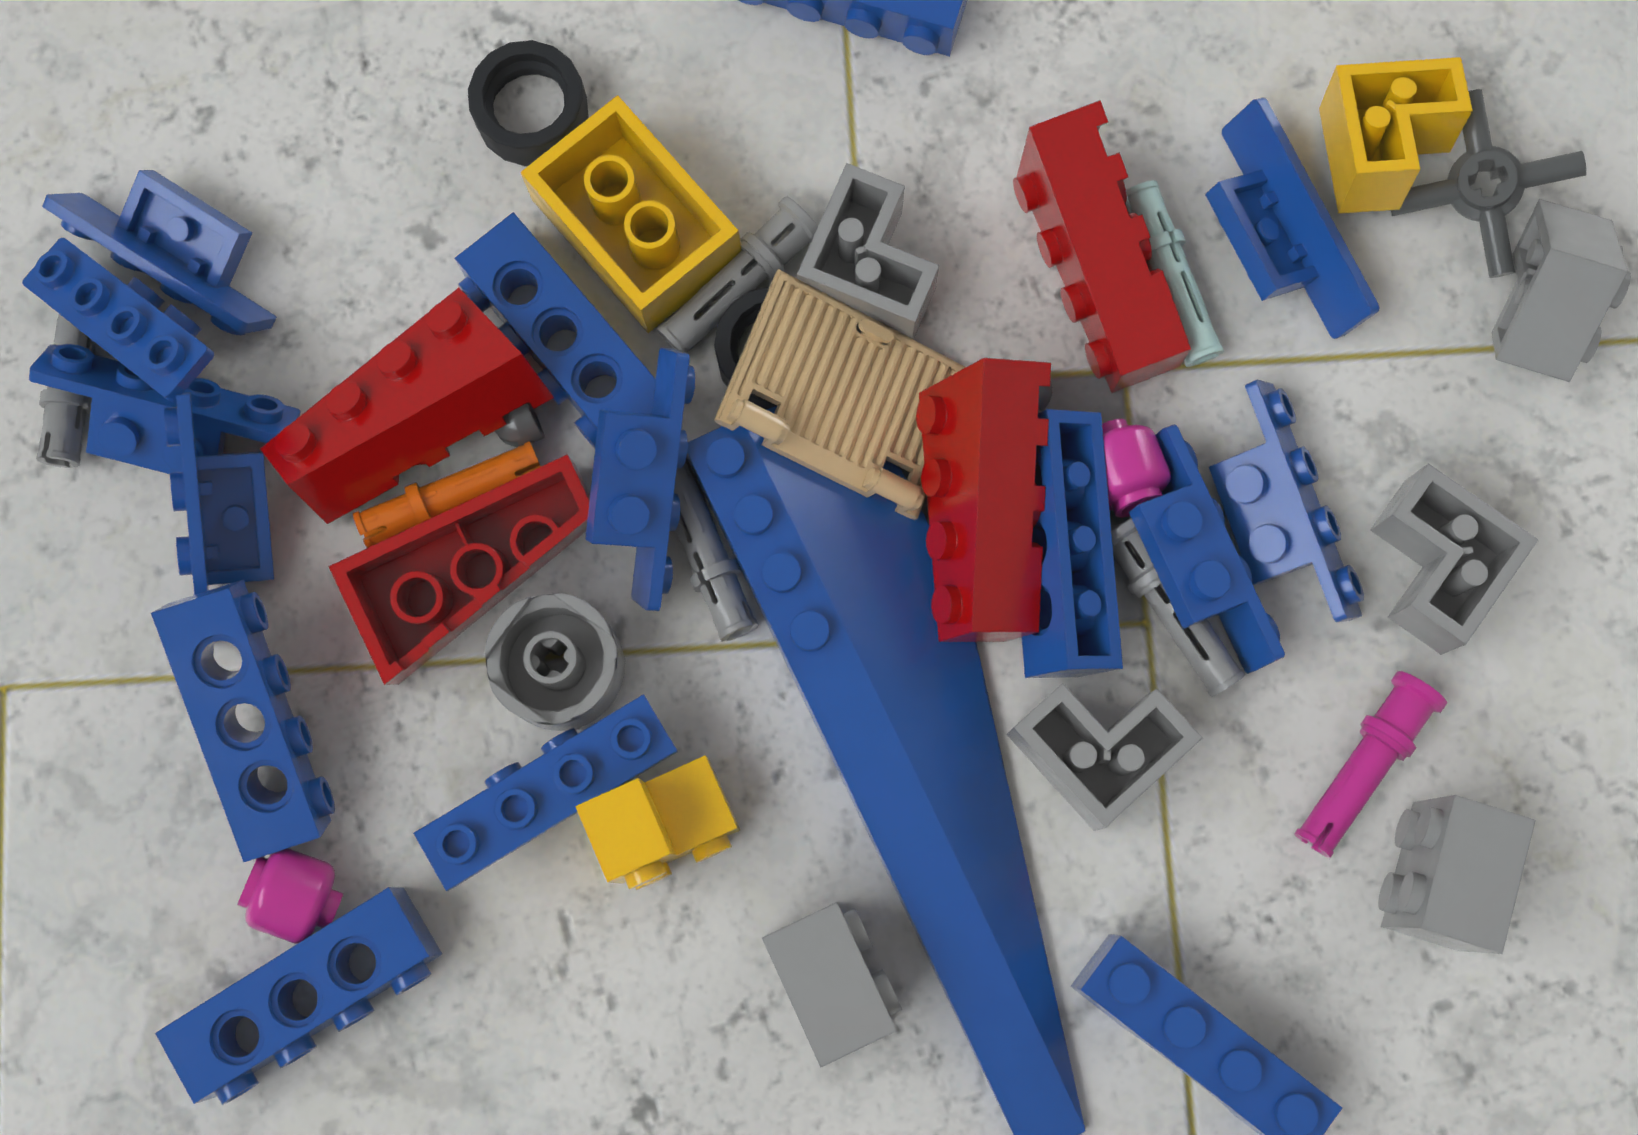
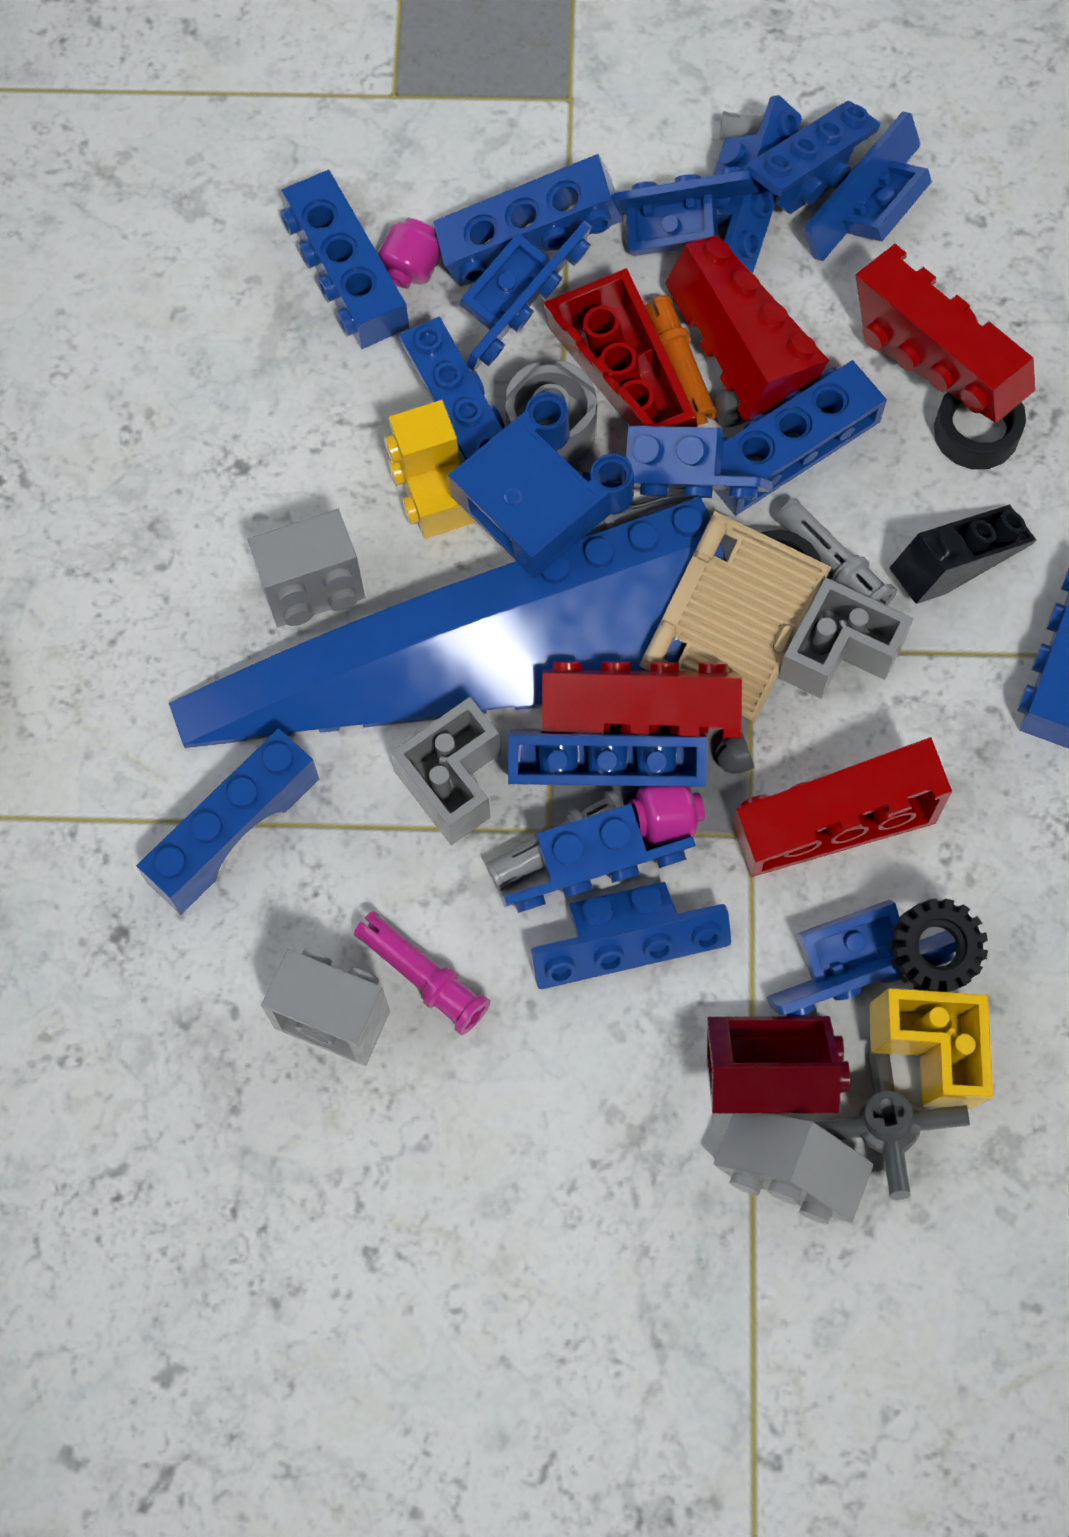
camera: 95 degrees right, 10 degrees down
(366, 724) = (511, 285): none -> blue bracket
(424, 139) = (941, 337): none -> red wedge
(632, 213) = (884, 479): yellow brick -> none
(716, 665) = (531, 494): none -> blue piece
(722, 121) = (959, 551): none -> black slope
(1170, 258) = (880, 856): light aqua pin -> none
(1304, 99) = (965, 933): none -> black tyre
(1400, 324) = (775, 1065): none -> dark red window
(1464, 556) = (577, 1055): light grey brick -> none

